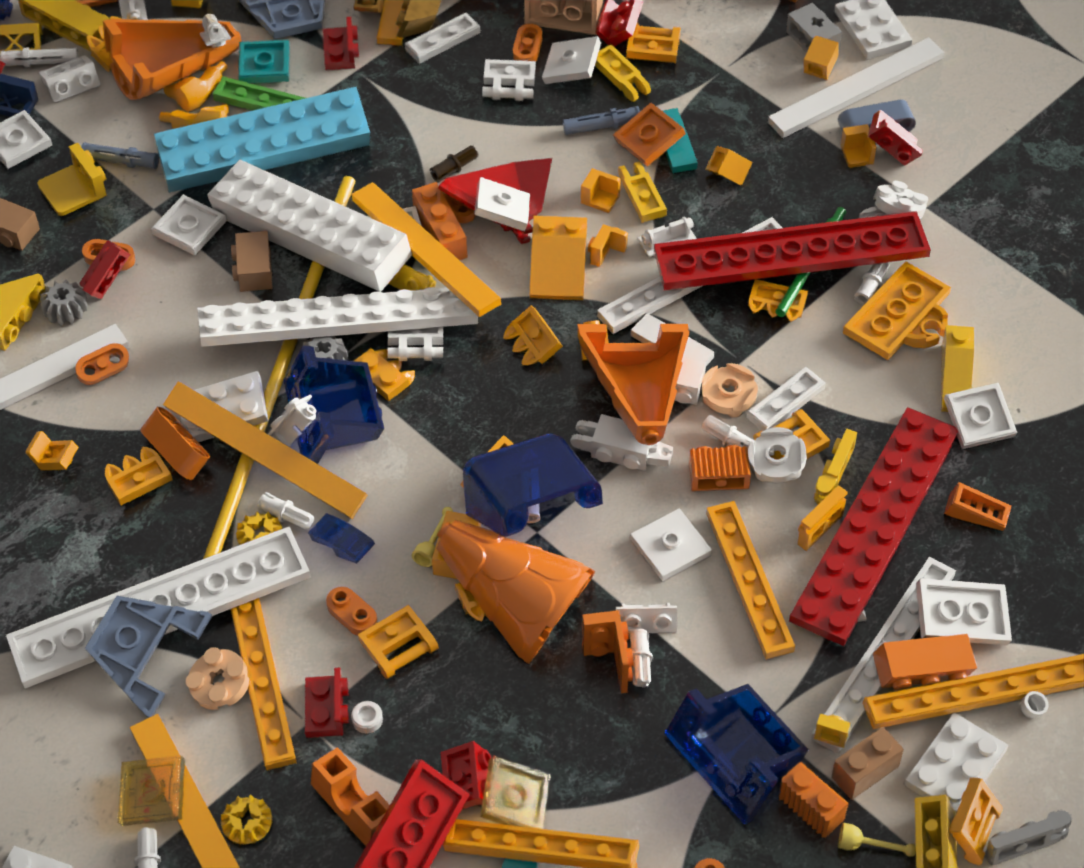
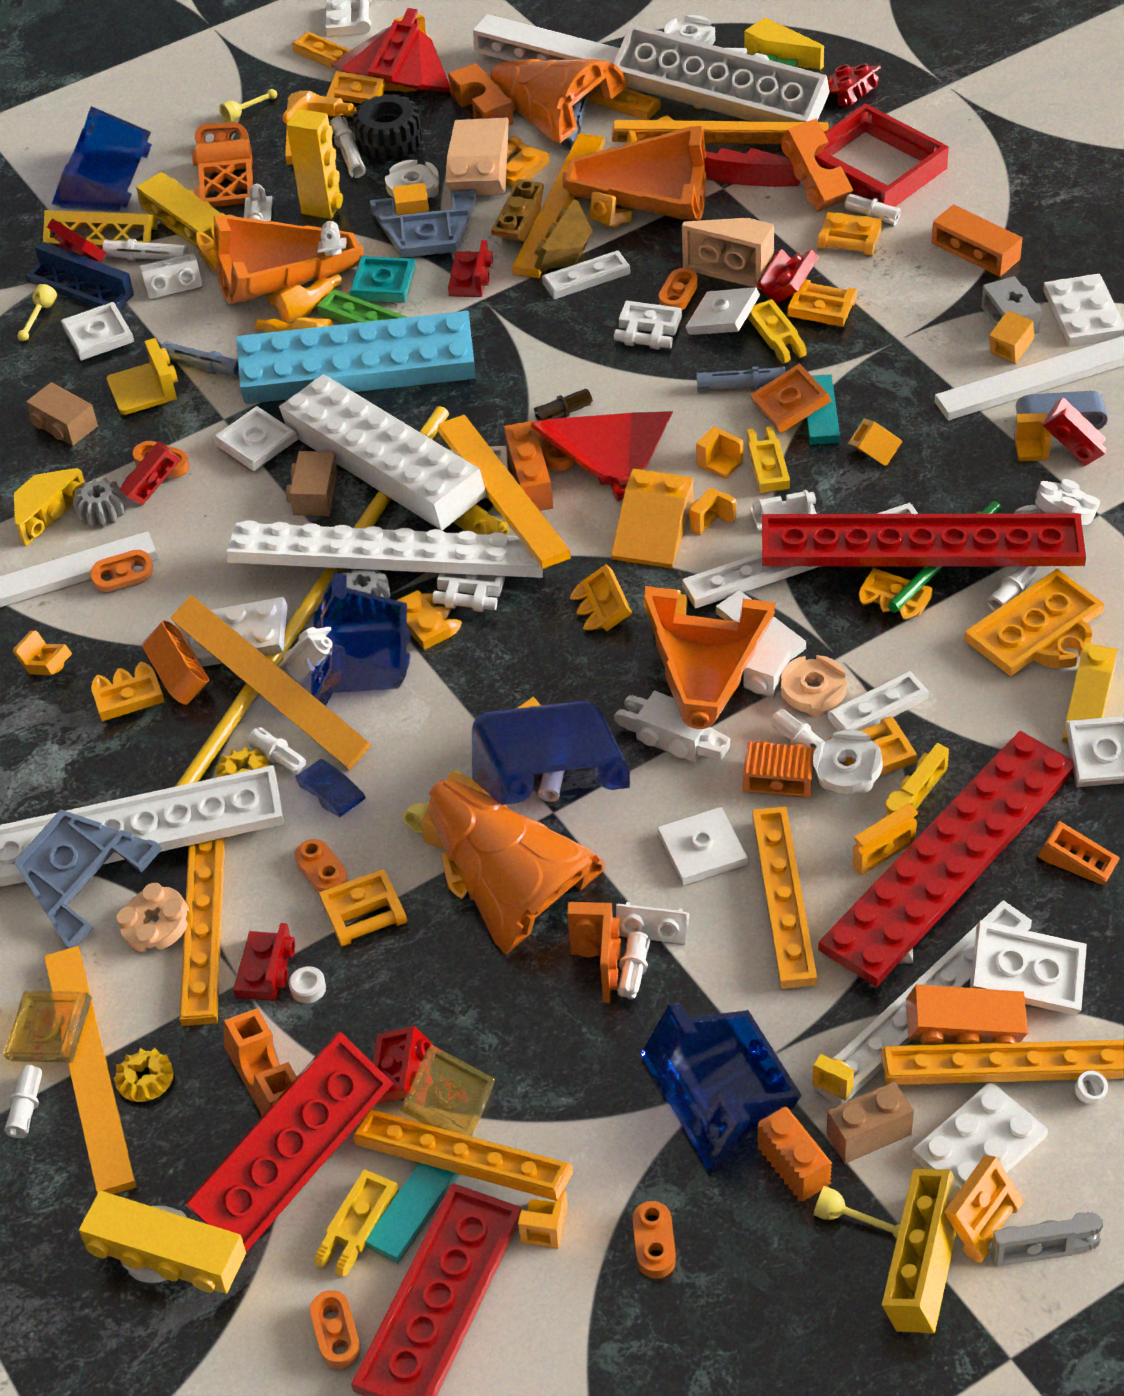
camera: 15 degrees right, 5 degrees down
(502, 204) = (600, 452): white plate -> none

